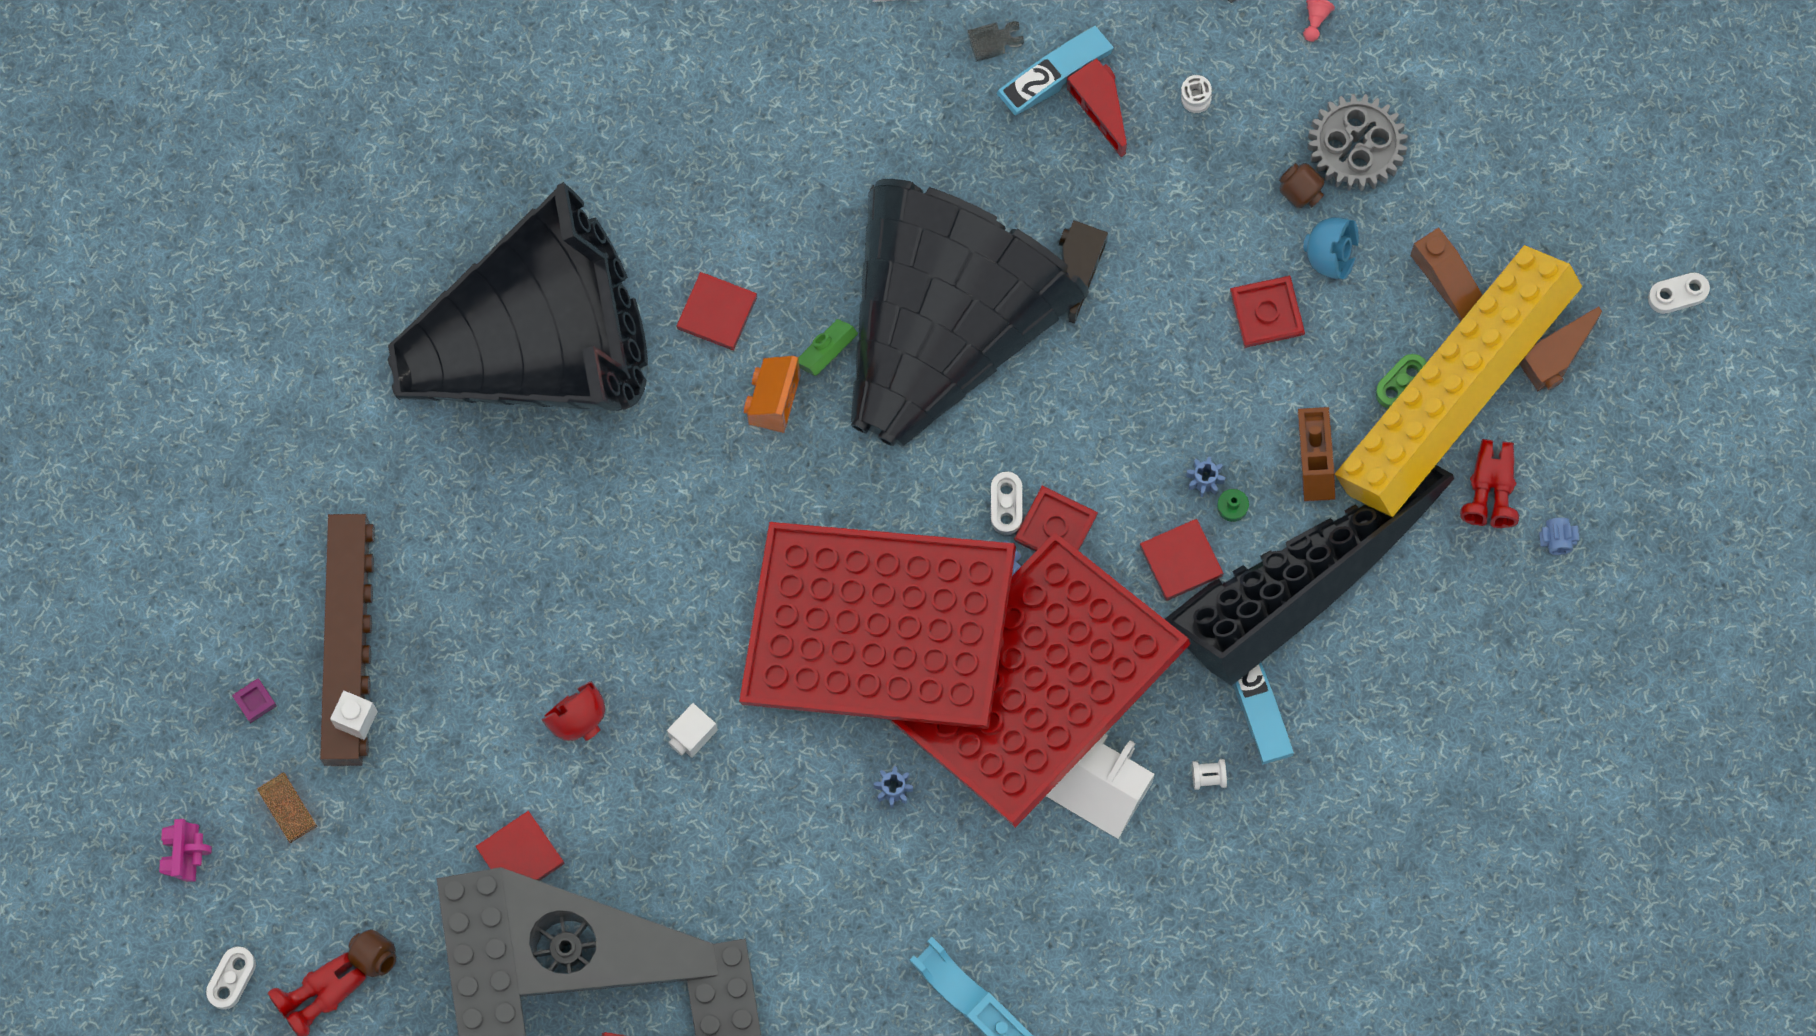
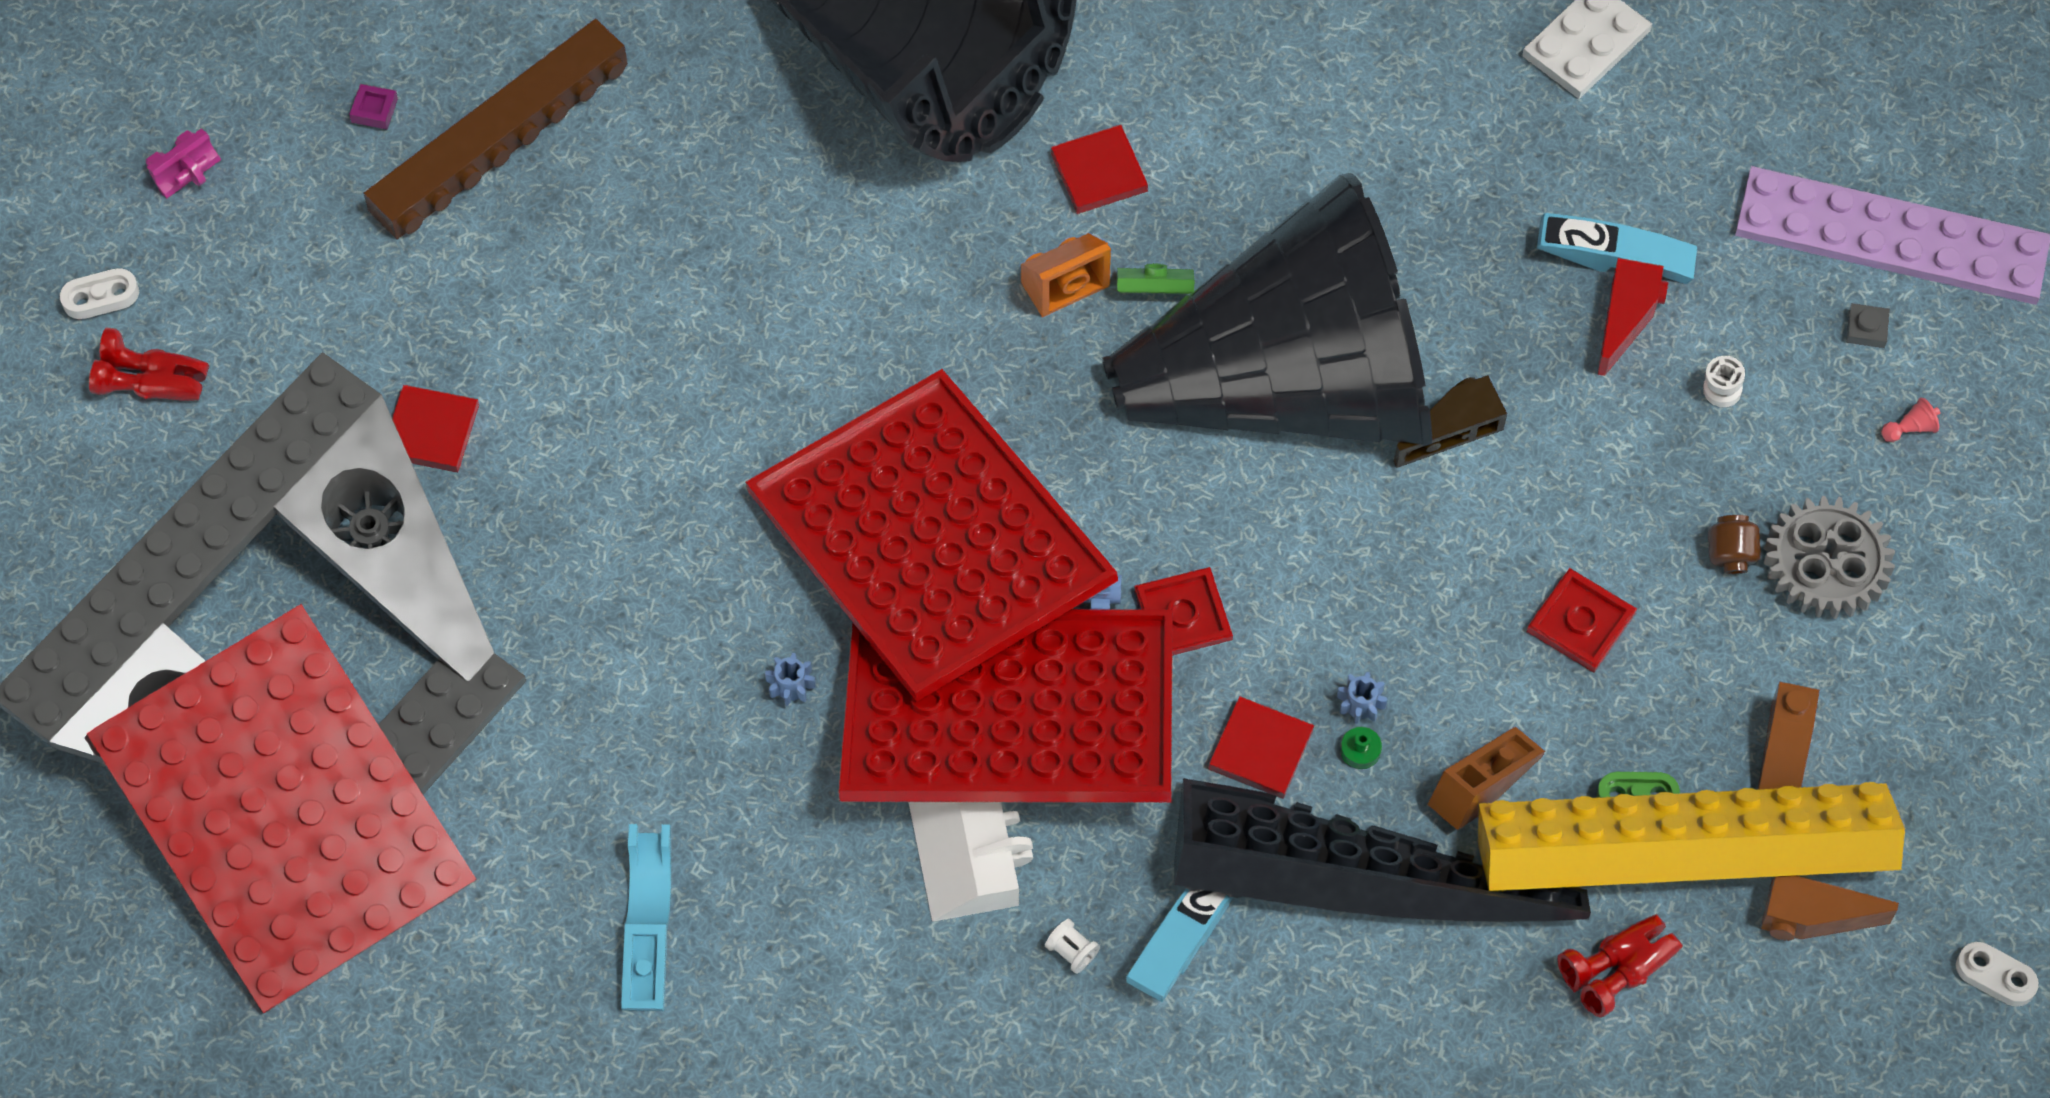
camera: 45 degrees right, 10 degrees down
(287, 807) = (299, 210): clear orange plate -> none
(353, 715) = (424, 179): white brick -> none
(372, 953) = (223, 383): reddish brown head -> none
(577, 714) = (603, 361): red cylinder -> none
(691, 731) = (679, 468): white brick -> none
(990, 41) = (1588, 173): clear smoke plate -> none
(1006, 504) = (1158, 550): white plate -> none
(1331, 246) = (1705, 614): dark azure cylinder -> none
(1559, 536) = (1632, 1066): medium blue gear -> none

